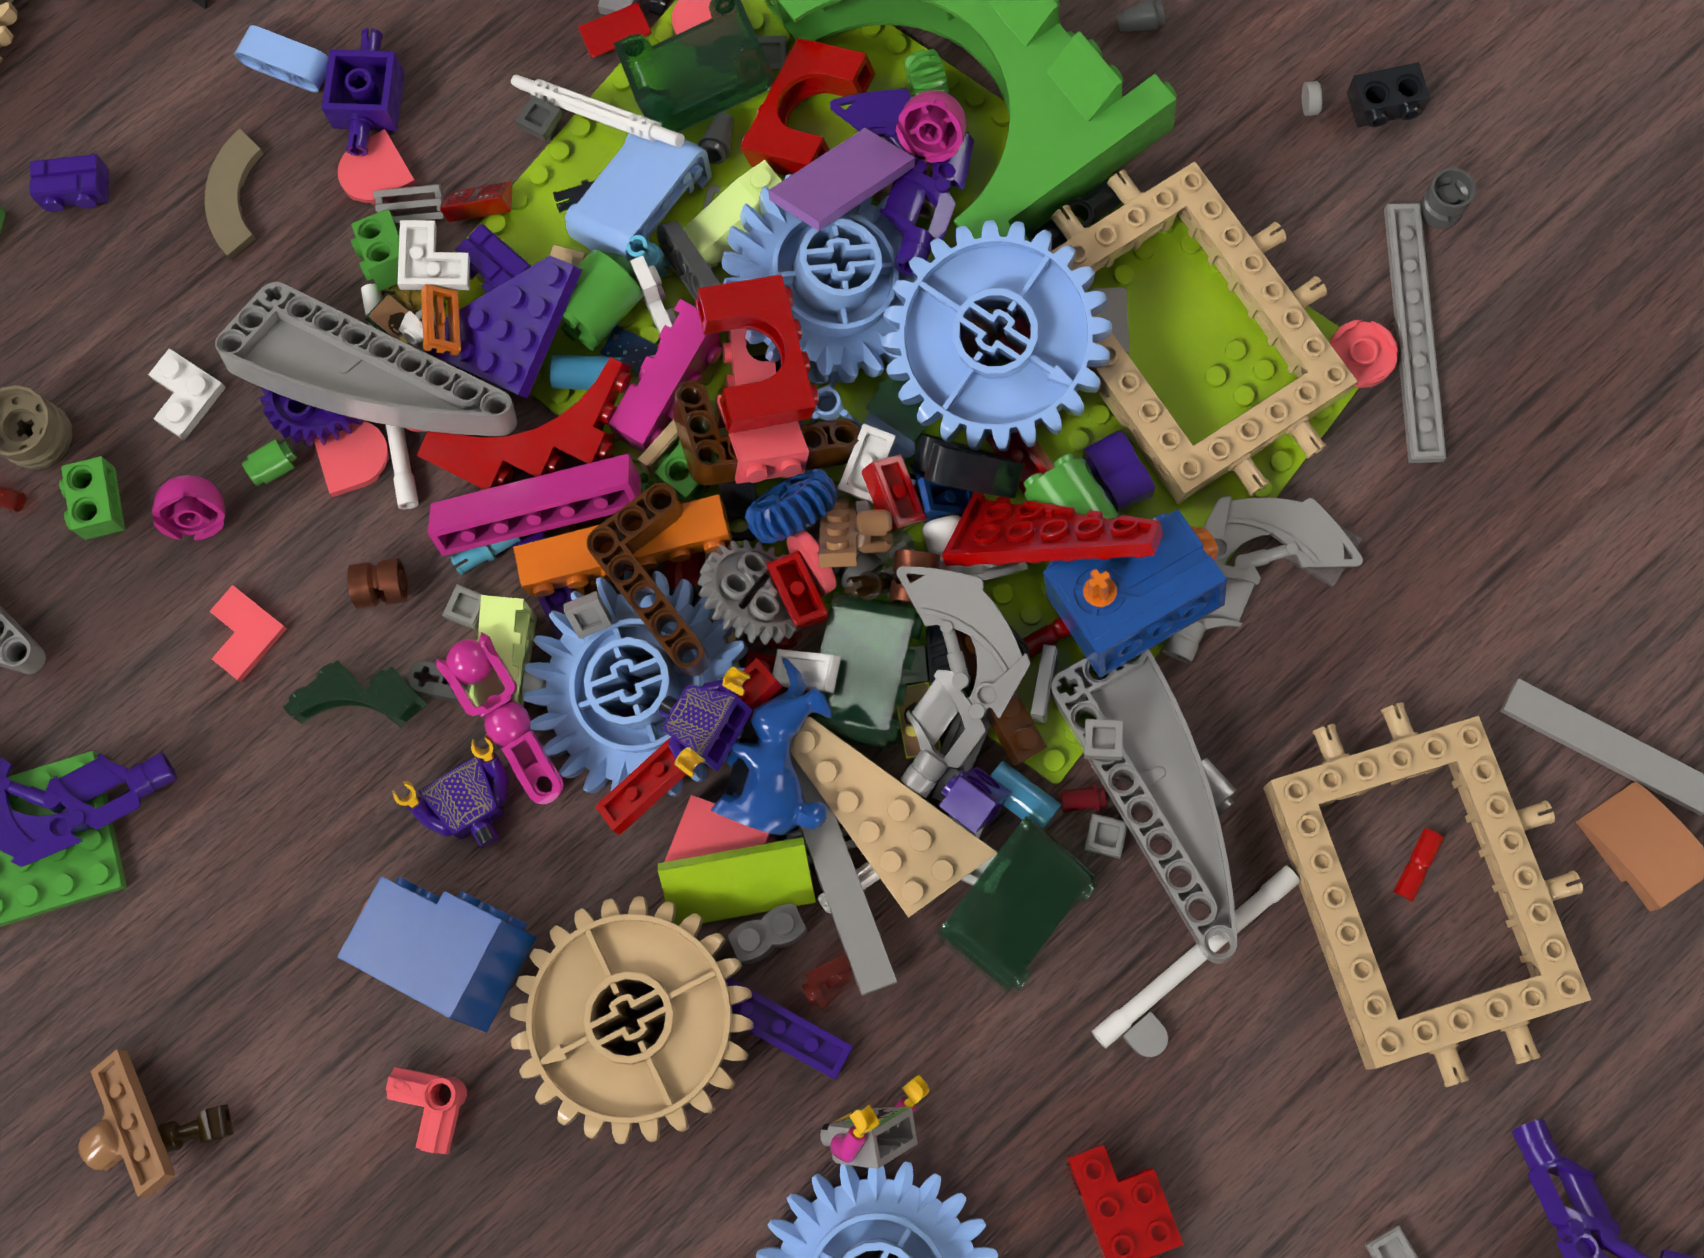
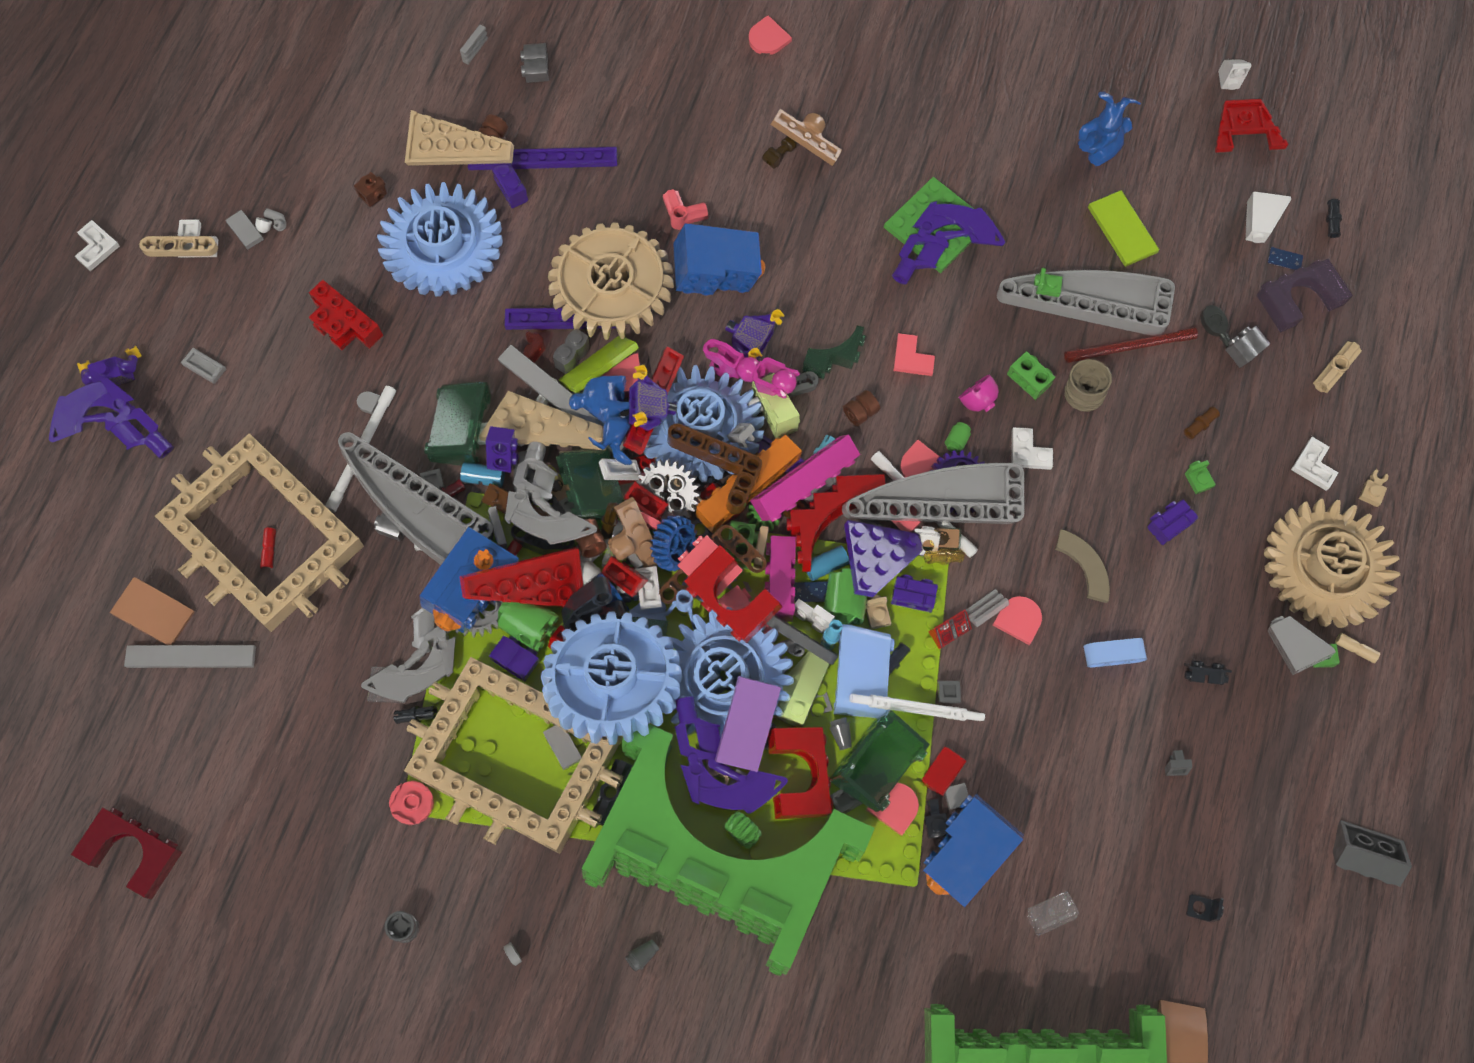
camera: 140 degrees right, 5 degrees down
(363, 90) = (1052, 642): dark purple brick -> none
(379, 246) = (977, 576): bright green brick -> none
(421, 263) = (947, 563): white plate -> none
(429, 340) = (921, 534): orange tile -> none
(464, 607) = (812, 424): light grey tile -> none
(875, 1135) = (473, 292): torso -> none
(932, 126) = (716, 786): dark pink cylinder -> none
(1103, 739) = (449, 502): light grey tile -> none
(1300, 472) = (416, 713): none -> black pin
(1385, 88) = (470, 986): black brick -> none
(1414, 333) = (389, 839): light grey tile -> none

